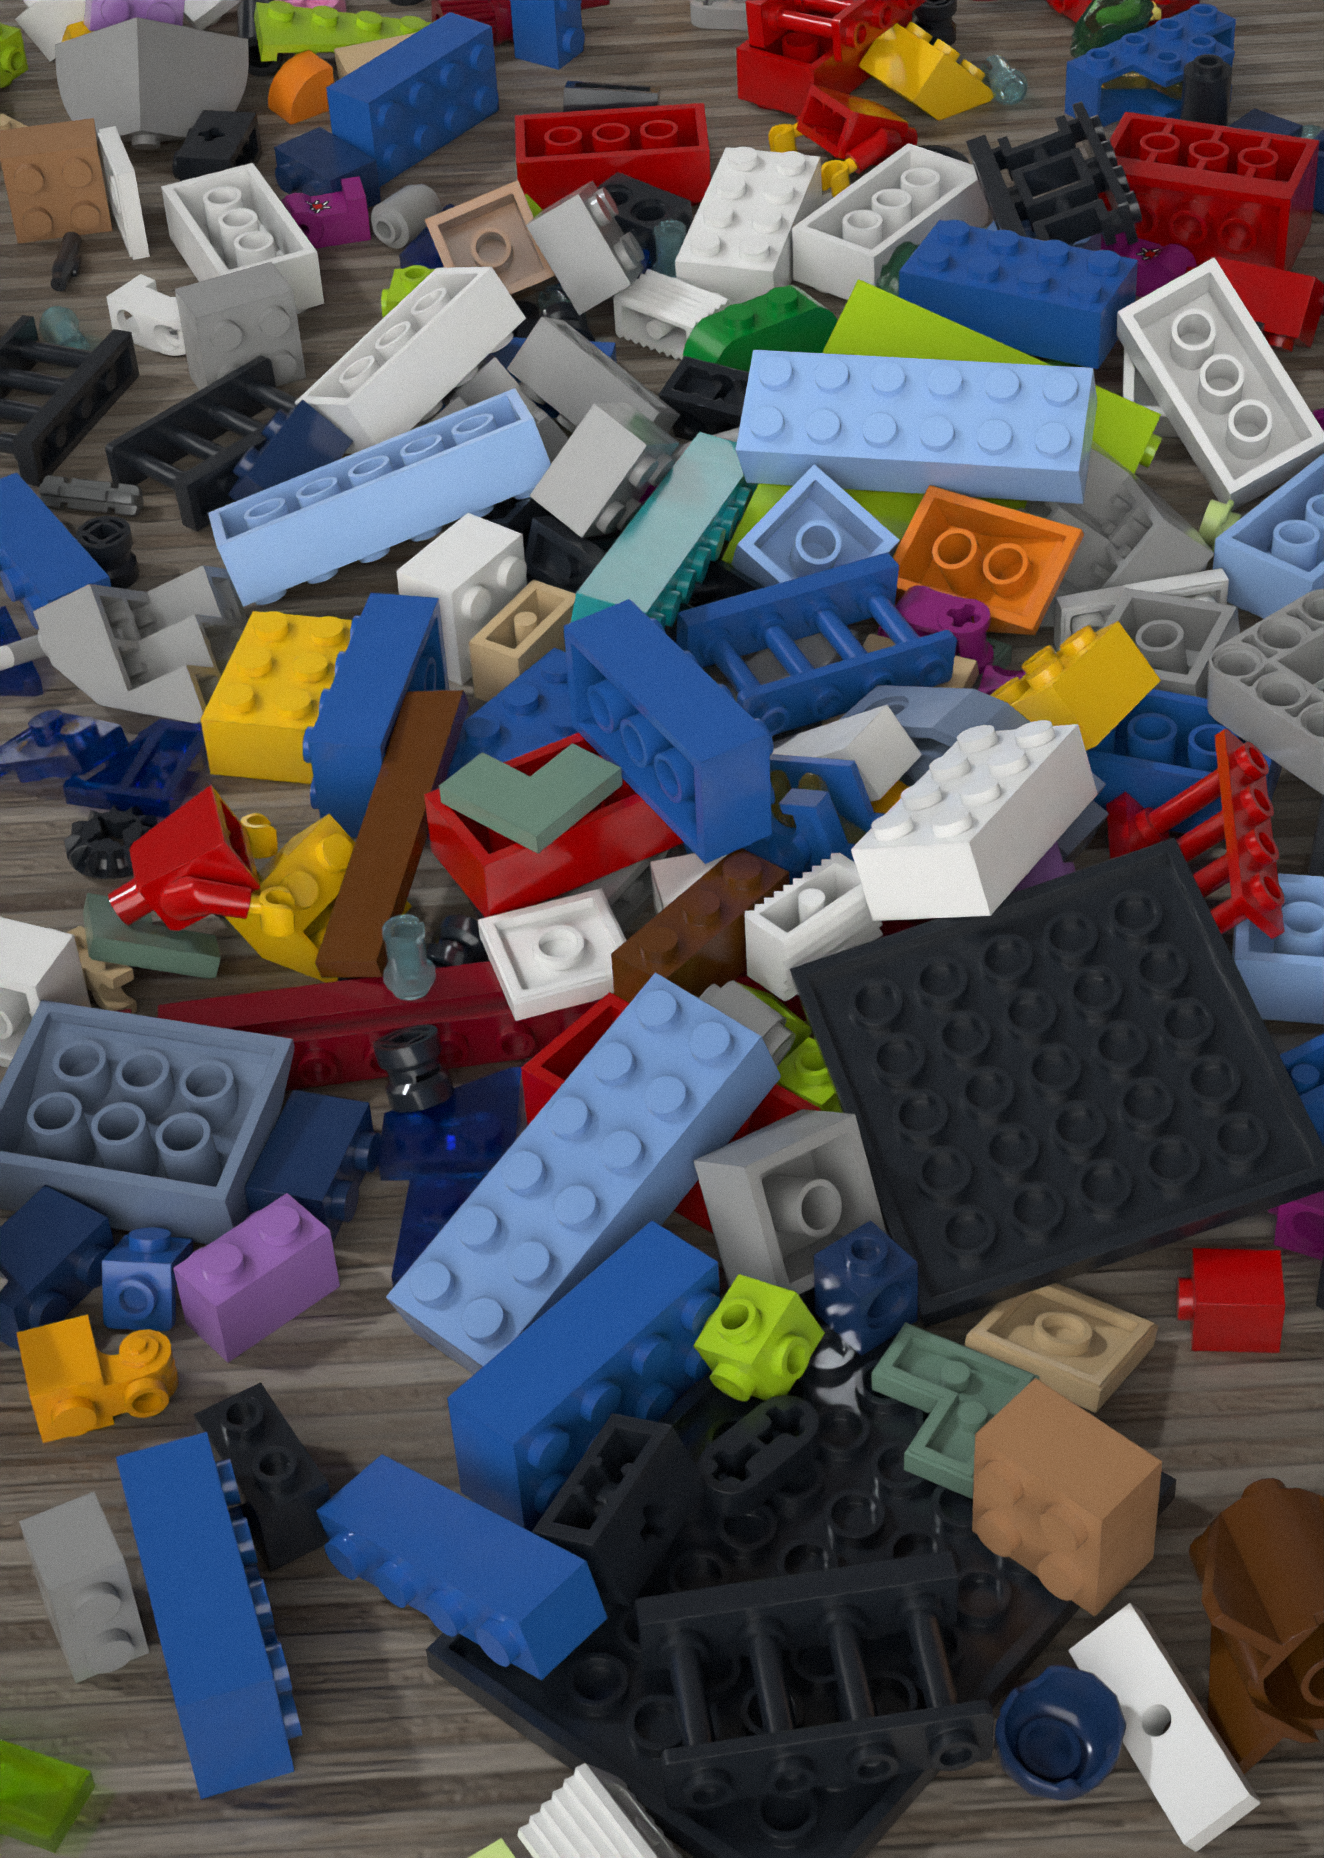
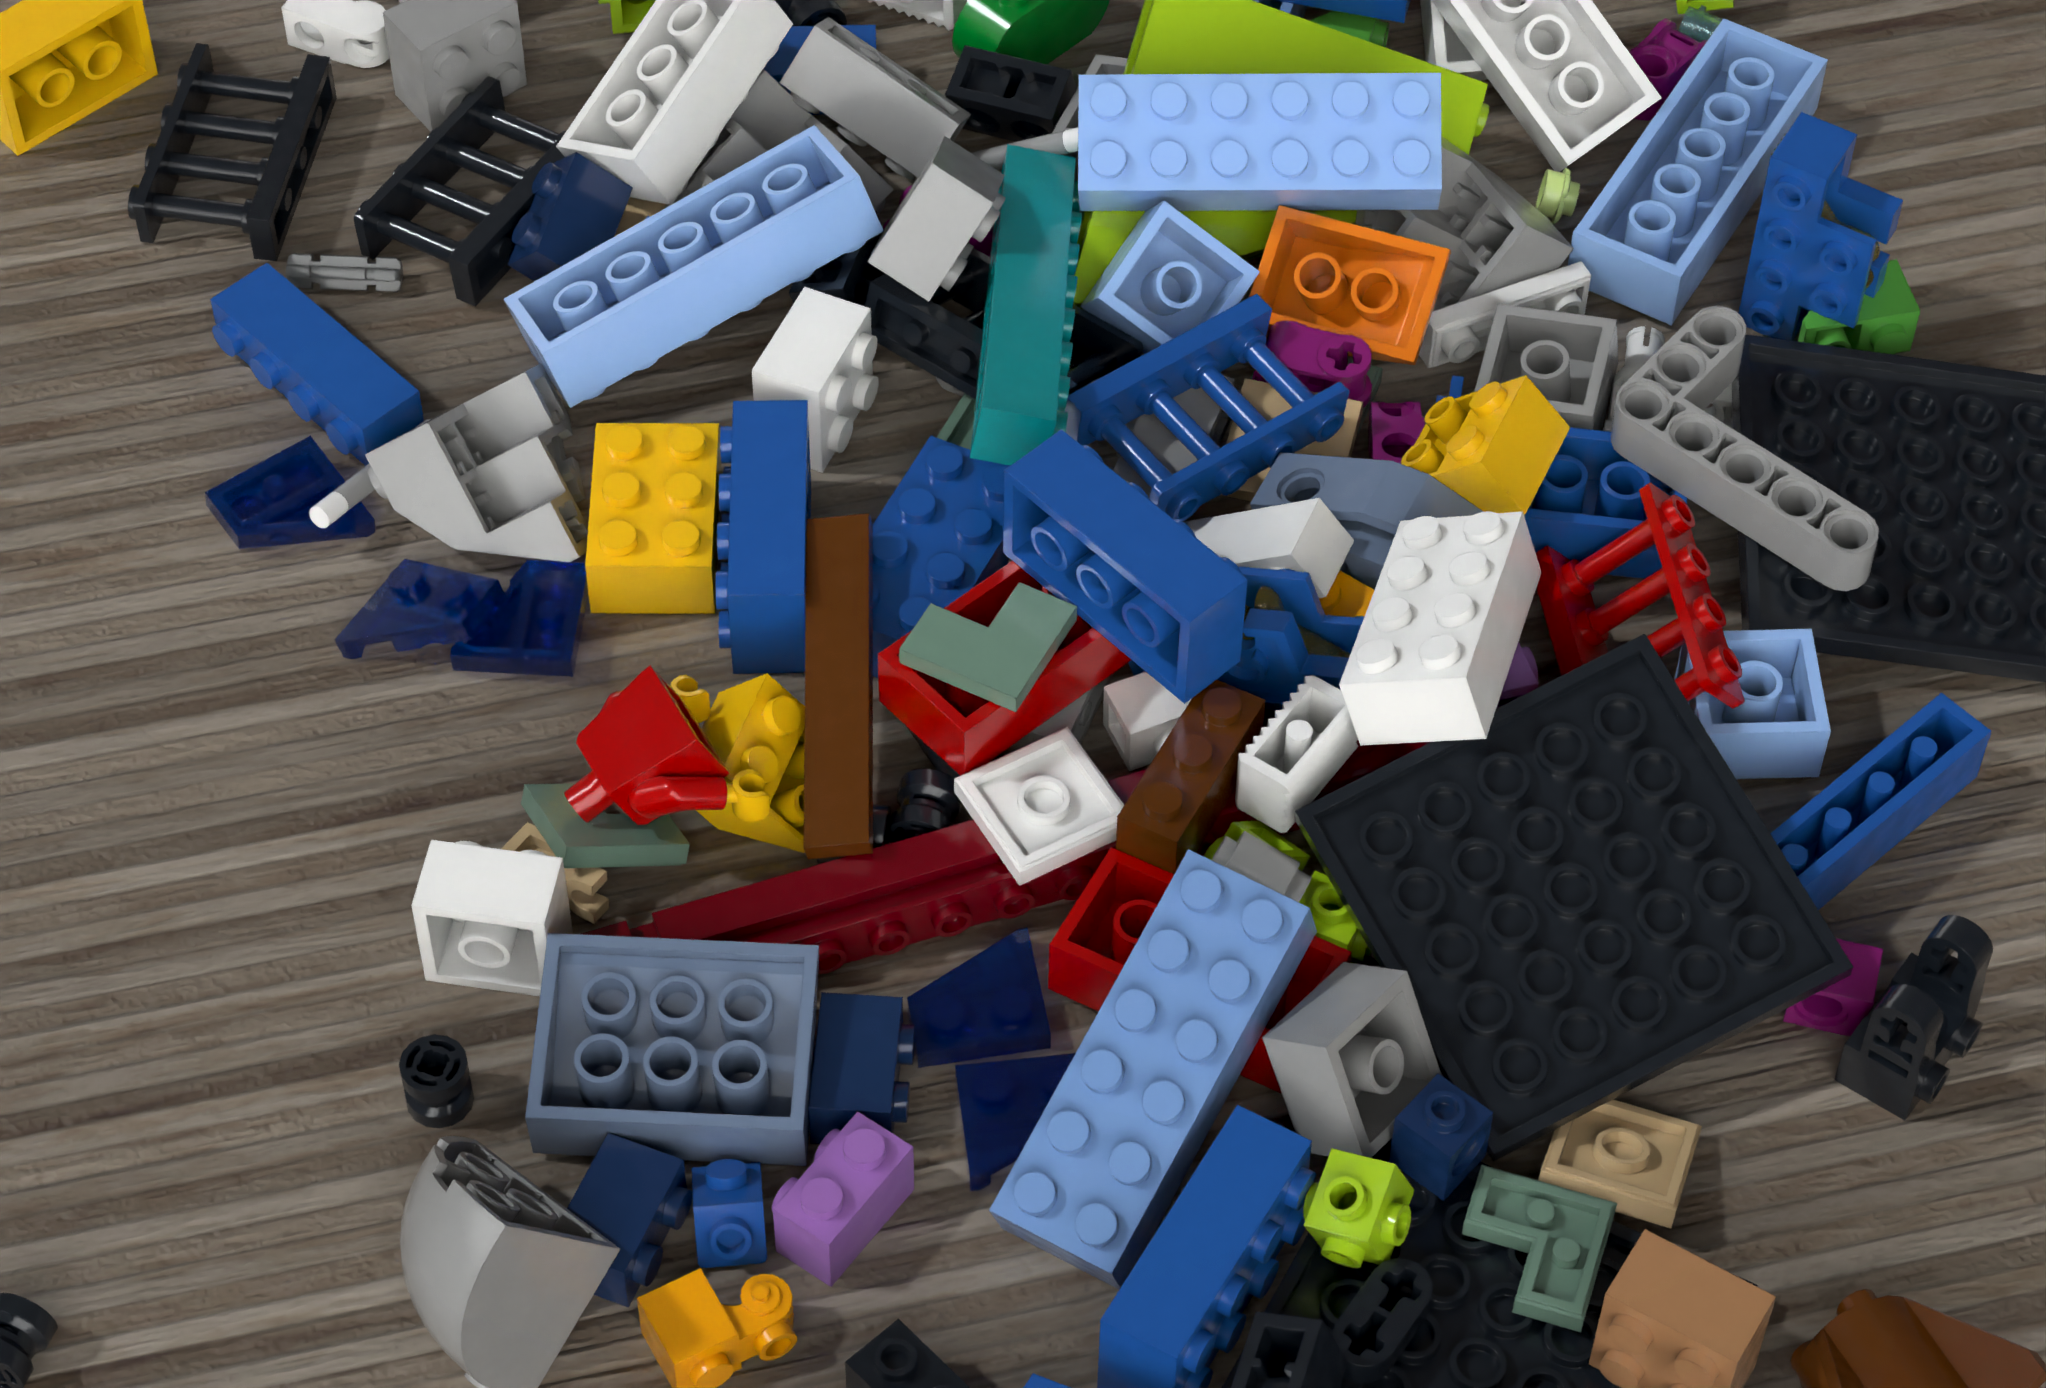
camera: 15 degrees left, 10 degrees up
(61, 327) = (231, 46): clear light blue pin -> none
(97, 855) = (521, 733): black gear -> none
(110, 544) = (398, 342): black wheel -> none
(408, 969) = (902, 843): clear light blue pin -> none
(413, 1068) = (929, 944): black wheel -> none
(519, 637) = (892, 426): tan brick -> none
(1233, 1300) = (1767, 1092): red brick -> none

